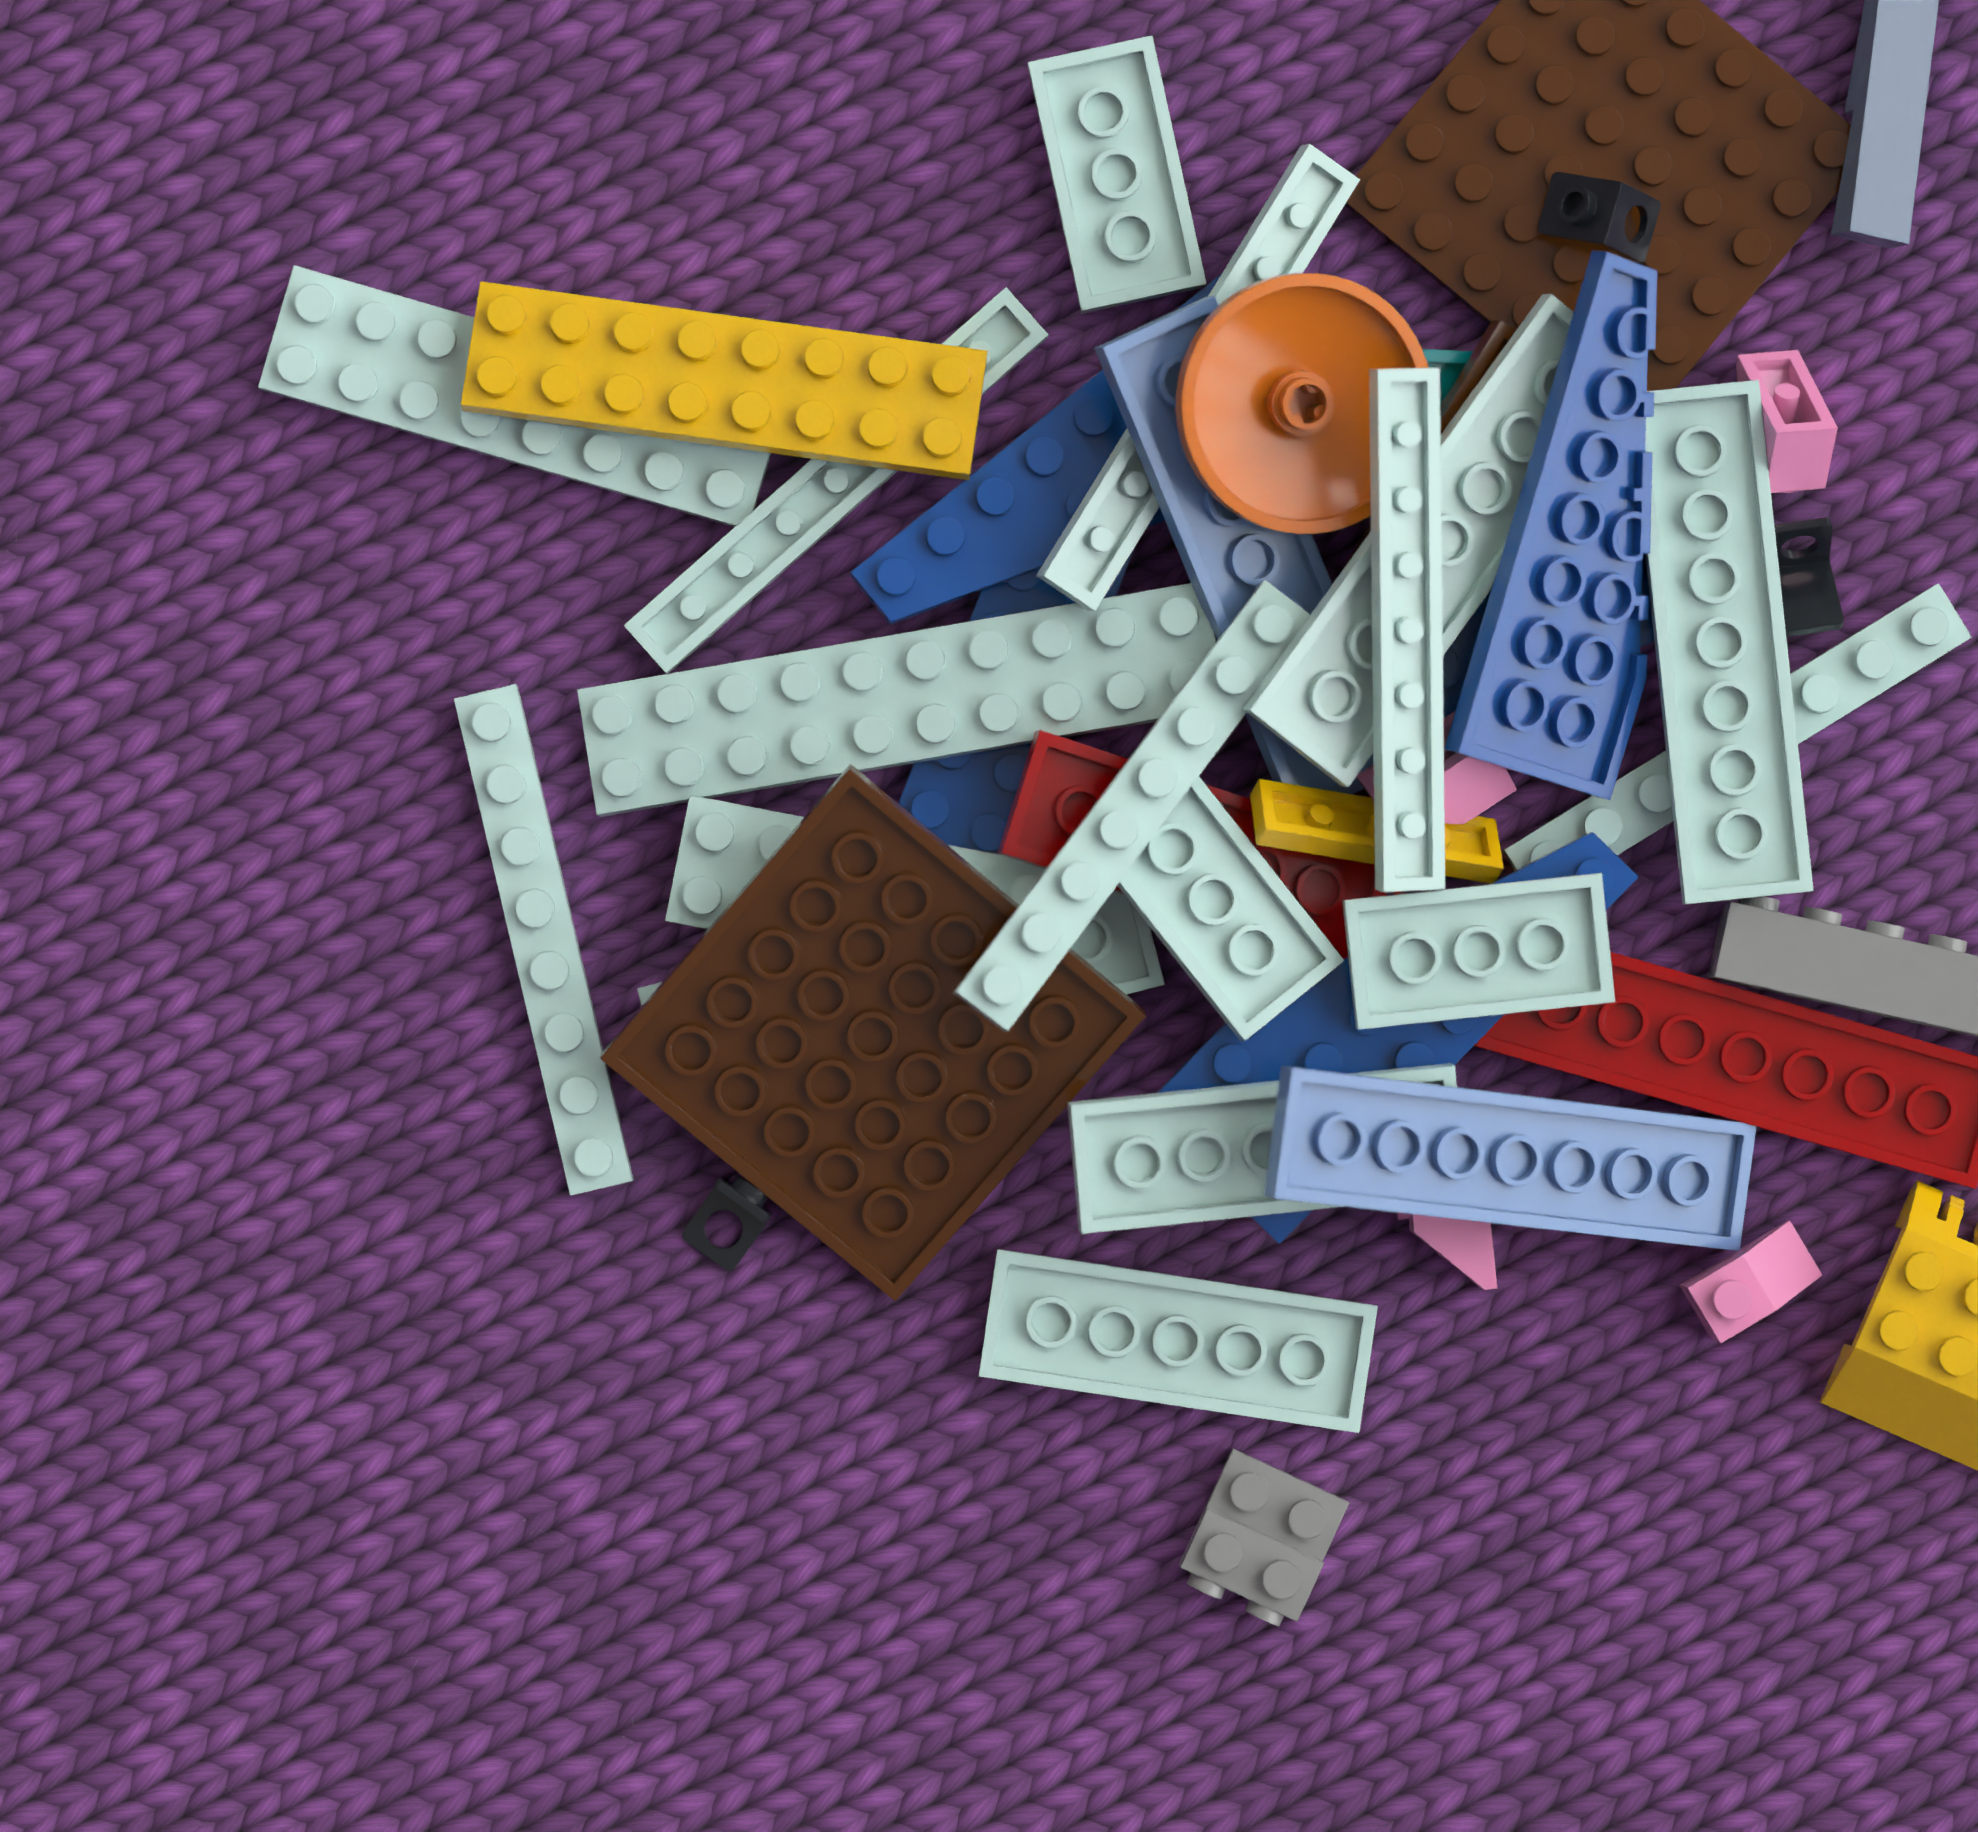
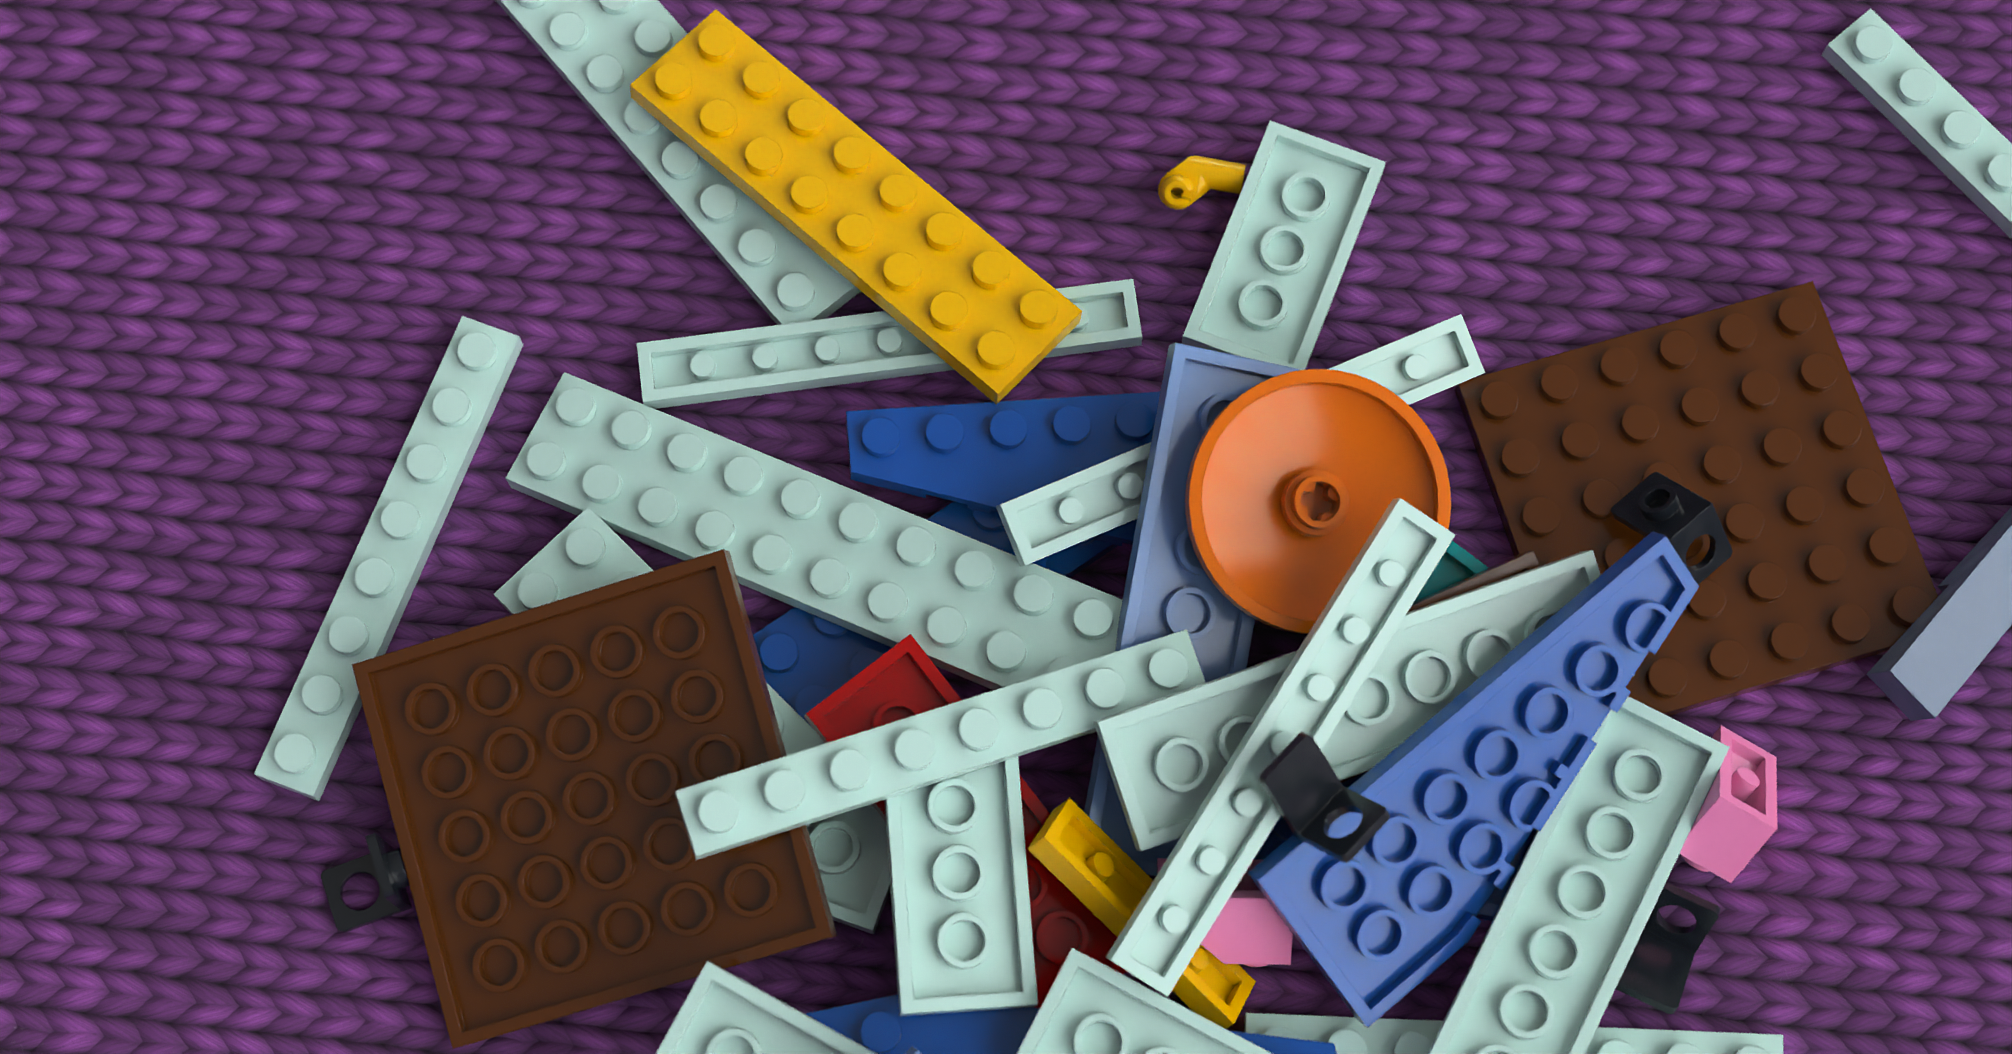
camera: 35 degrees right, 15 degrees down
(994, 152) = (1196, 177): none -> yellow arm
(1460, 658) = (1313, 798): none -> black bracket

